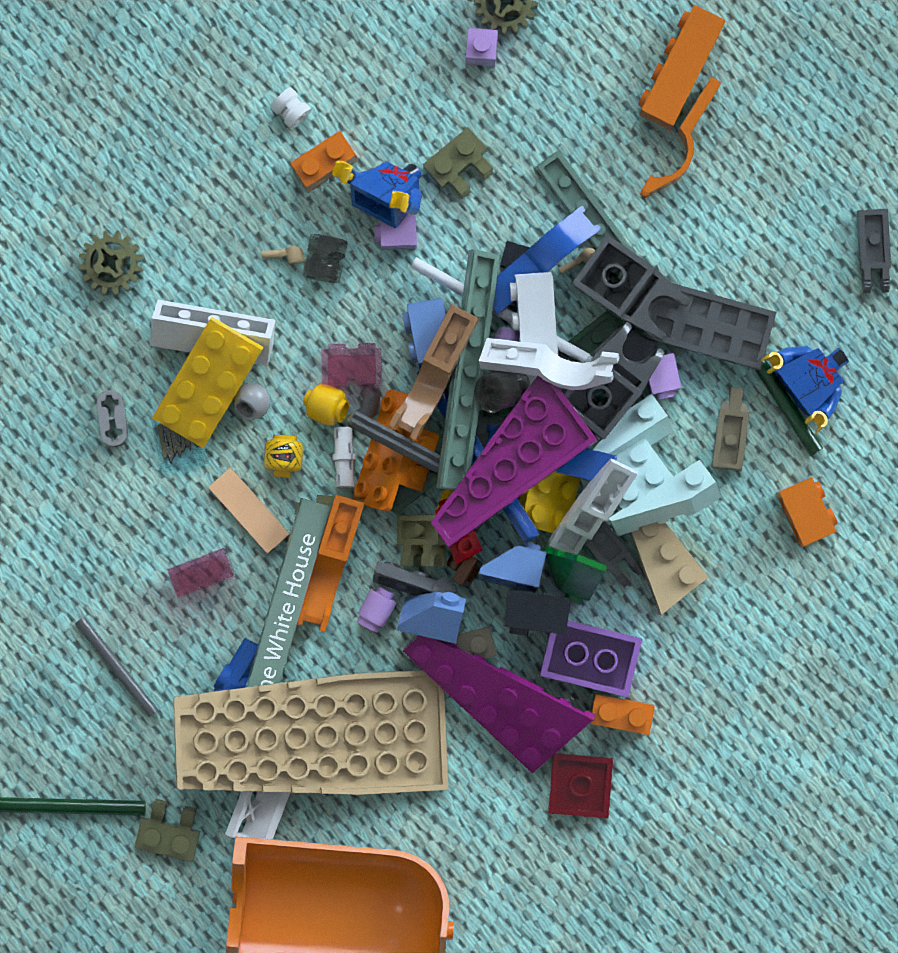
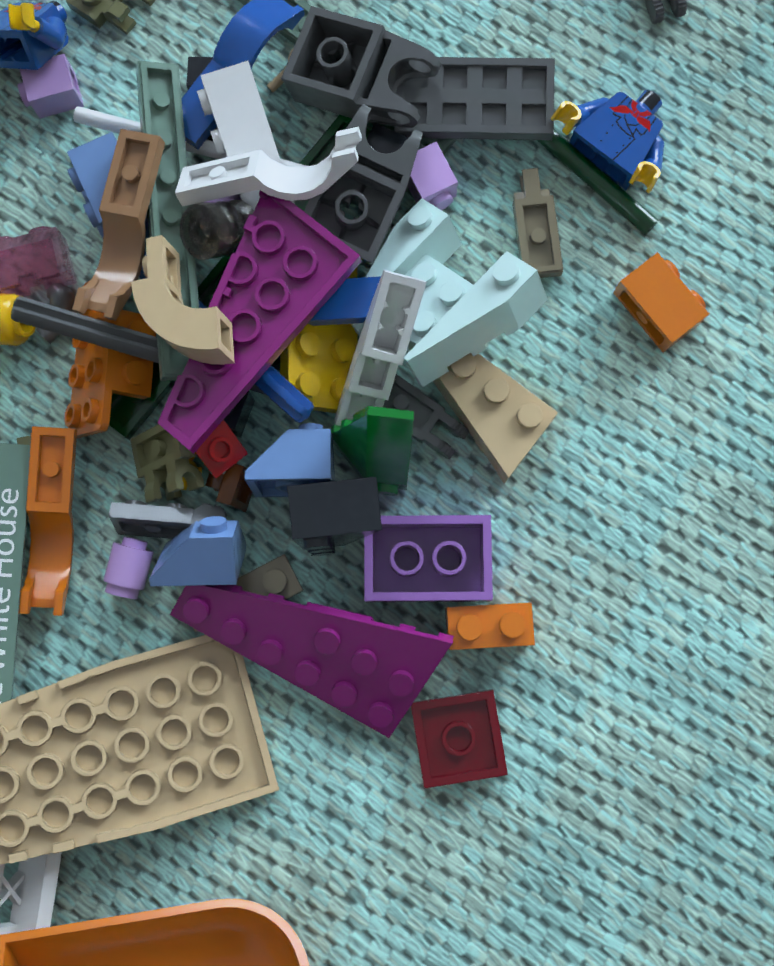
camera: 10 degrees left, 5 degrees down
(344, 457) = (42, 382): white pin -> none
(470, 469) = (193, 332): none -> tan arch

